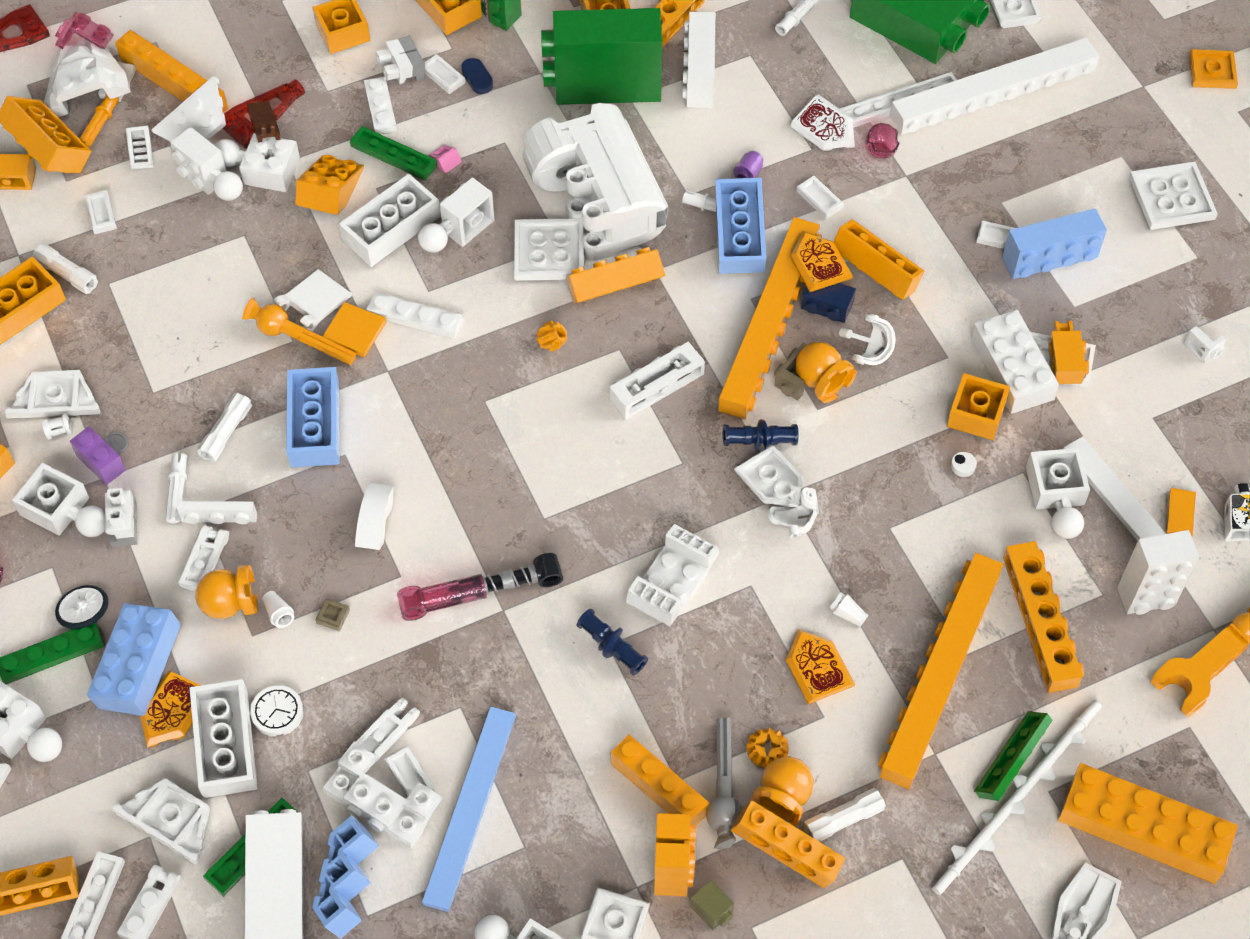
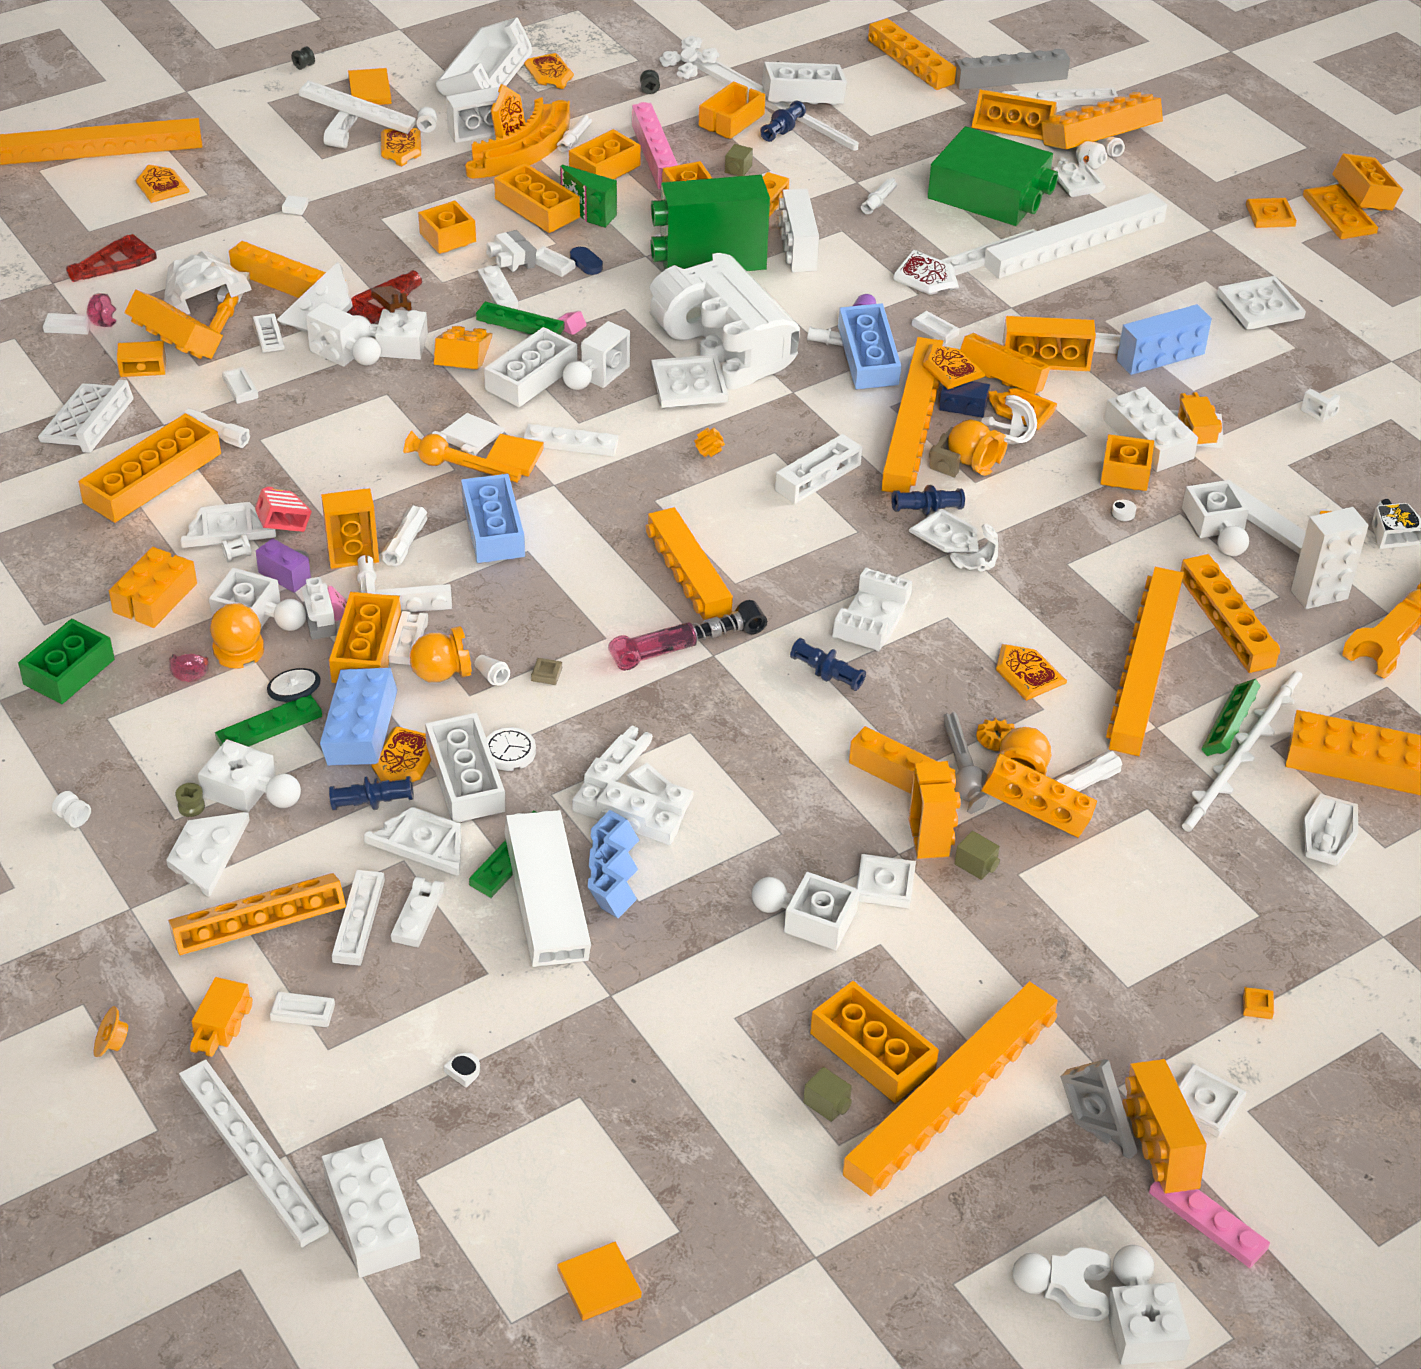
camera: 10 degrees left, 15 degrees down
(34, 545) = (236, 635): none -> light orange tile
(84, 27) = (178, 245): clear pink bracket -> none
(107, 385) = (282, 510): none -> coral torso
(128, 756) = (371, 793): none -> dark blue piece
(143, 509) = (338, 603): none -> bright pink slope
(158, 559) = (365, 633): none -> light orange brick
(164, 423) = (350, 527): none -> light orange brick
(373, 512) = (571, 589): white brick -> none
(469, 810) = (720, 808): light blue tile -> none
(500, 494) = (689, 564): none -> light orange brick
(615, 276) = (759, 393): light orange brick -> none
(848, 609) = (1045, 623): white cone -> none
(882, 141) = (983, 280): clear pink hair -> none
(890, 308) = (1042, 407): none -> light orange tile
(931, 237) = (1054, 341): none -> light orange brick

